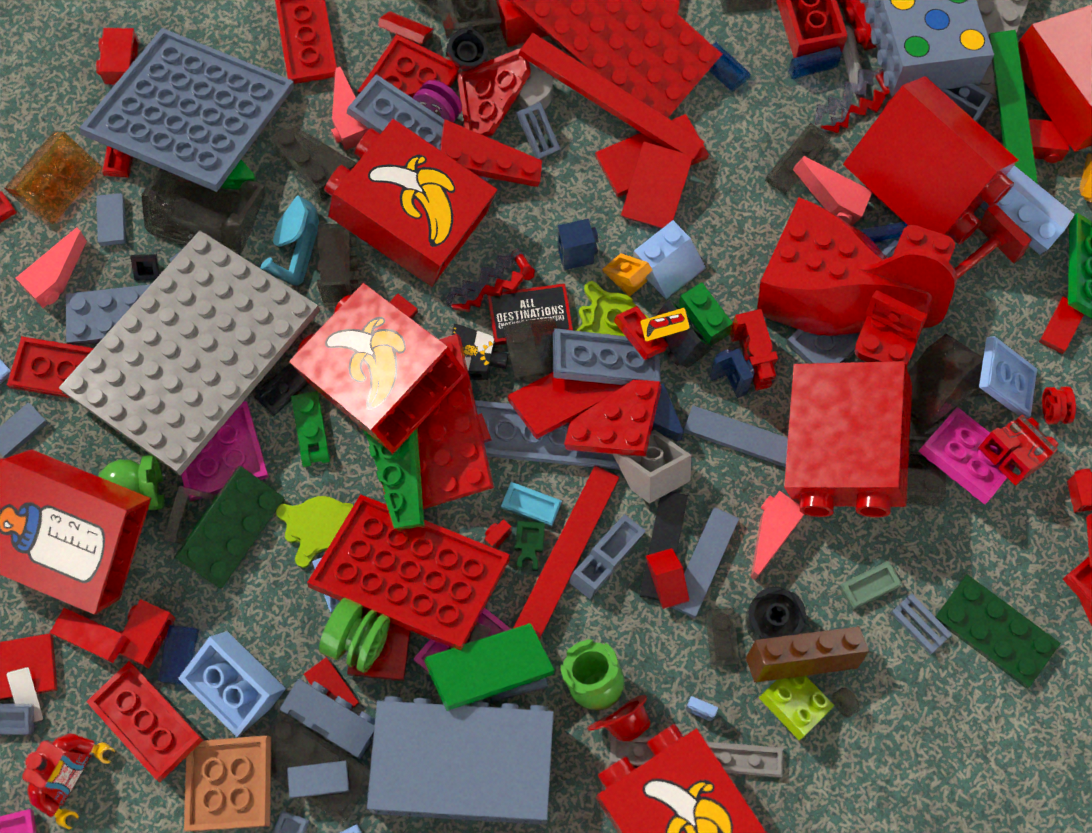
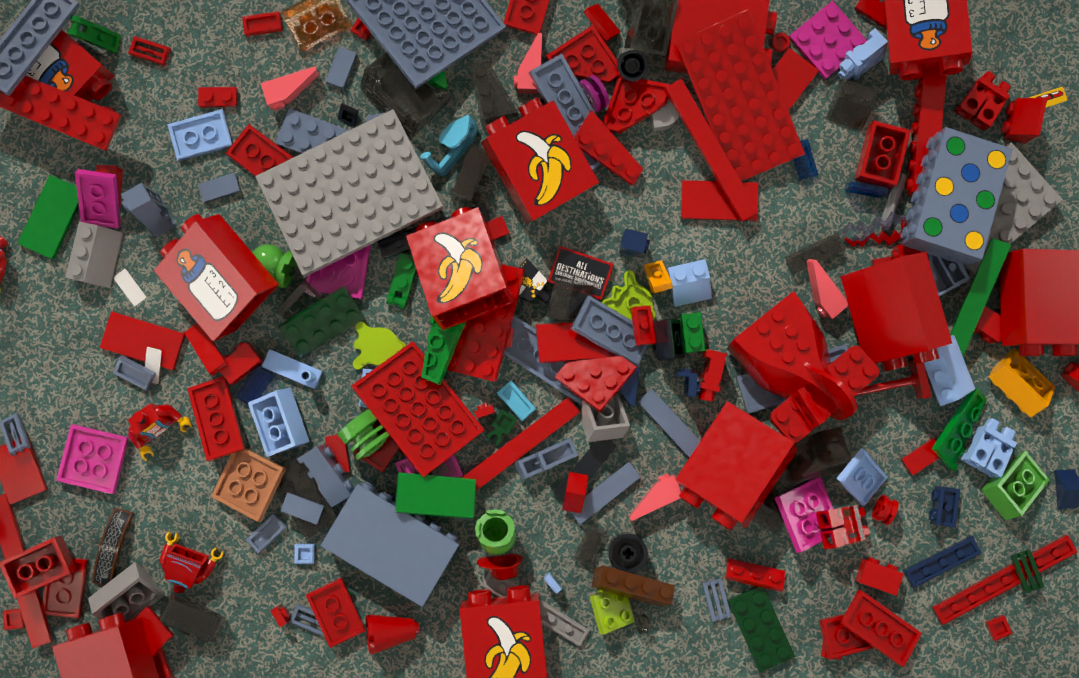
camera: 25 degrees right, 15 degrees up
(218, 608) = (292, 369): none -> light blue piece
(481, 287) = (558, 238): piece -> none
(524, 123) = (651, 130): sand blue tile -> none
(656, 185) = (709, 227): red tile -> none
(665, 324) = (658, 332): yellow sticker -> none
(870, 585) = (699, 560): sand green tile -> none
(885, 232) = (837, 334): clear blue tile -> none
(950, 566) = (755, 575): none -> red plate

